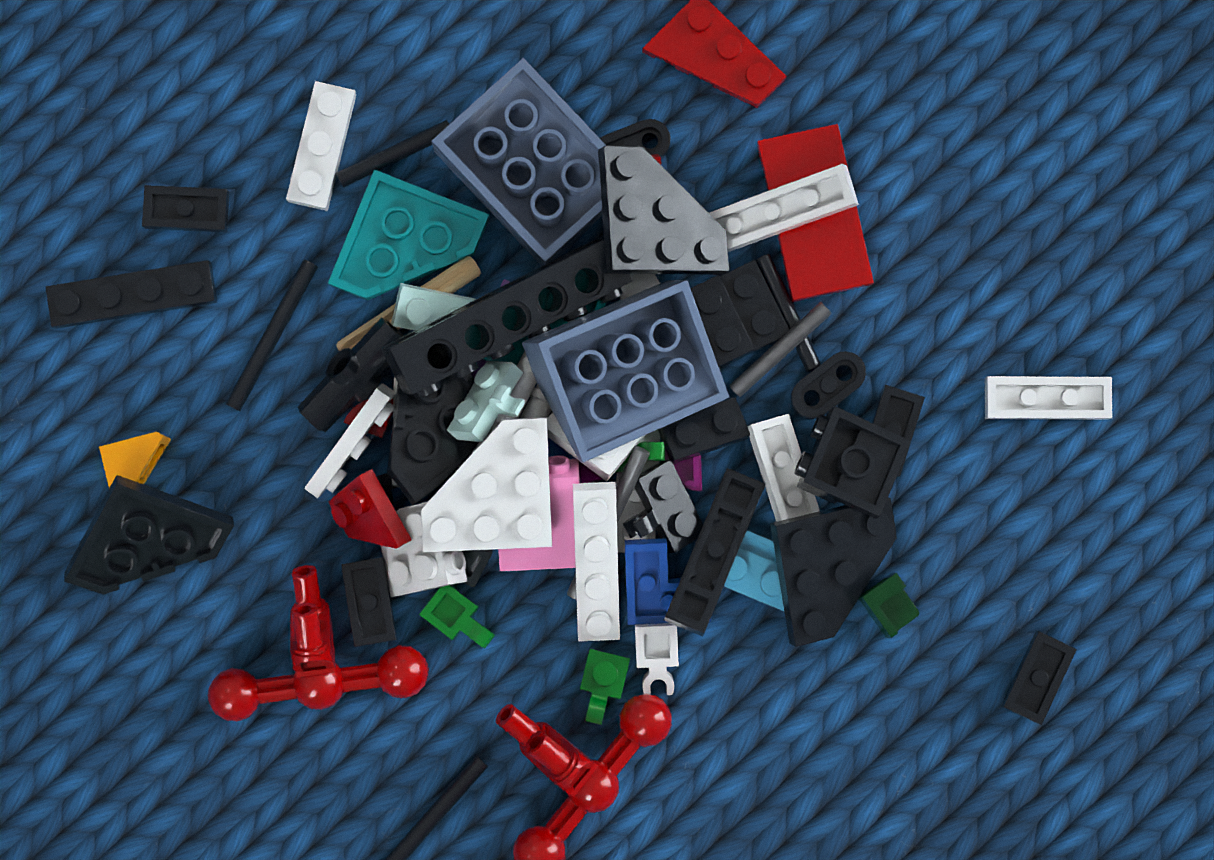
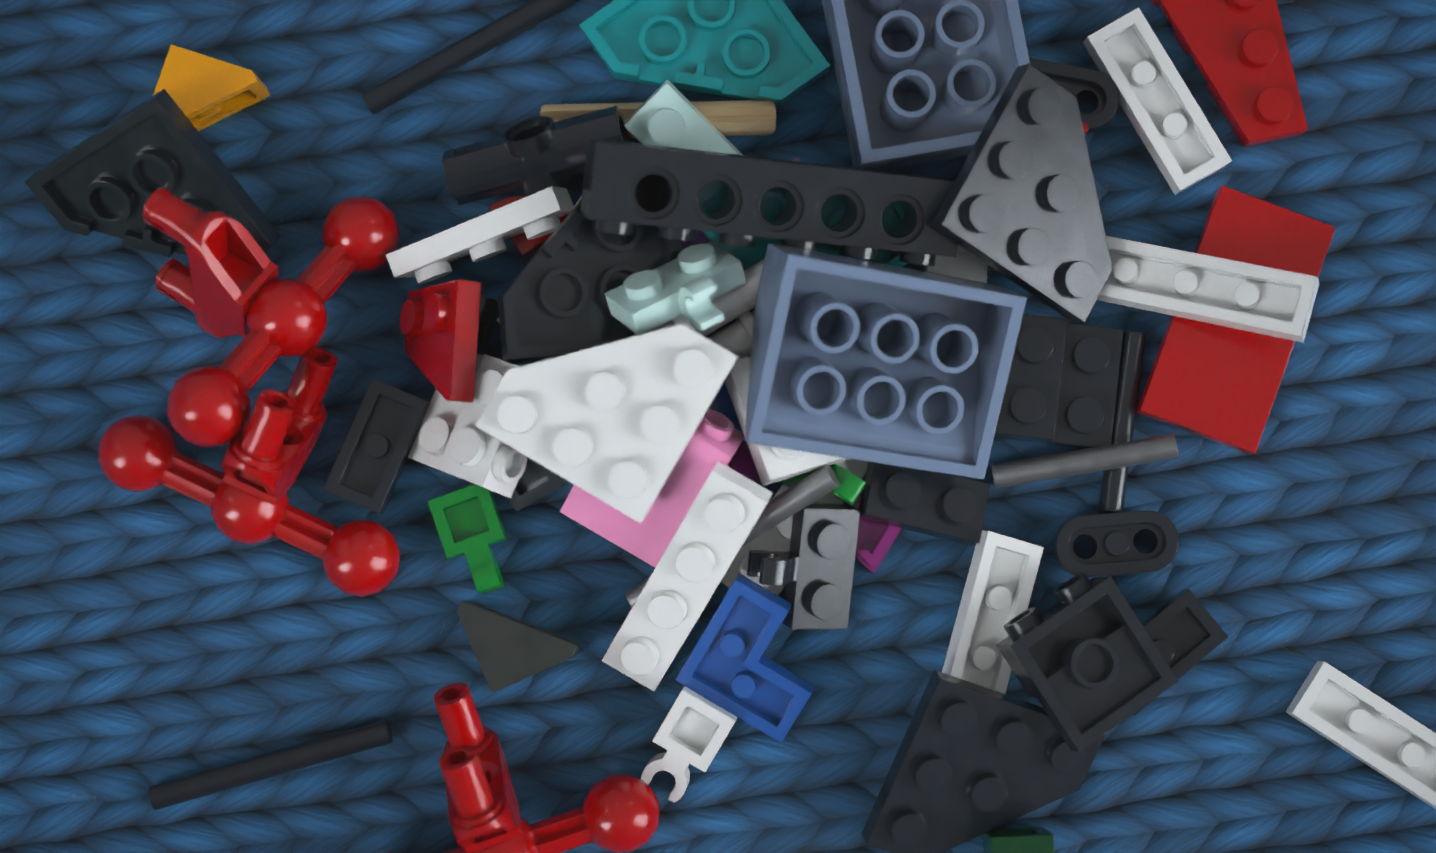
camera: 35 degrees right, 0 degrees up
(235, 563) = (240, 292): none -> red connector
(522, 667) = (509, 647): none -> pearl dark grey slope
(605, 678) = (603, 727): green plate -> none
(690, 114) = (1157, 101): none -> white plate
(714, 552) = (840, 661): black plate -> none
(756, 571) = (871, 704): medium azure plate -> none

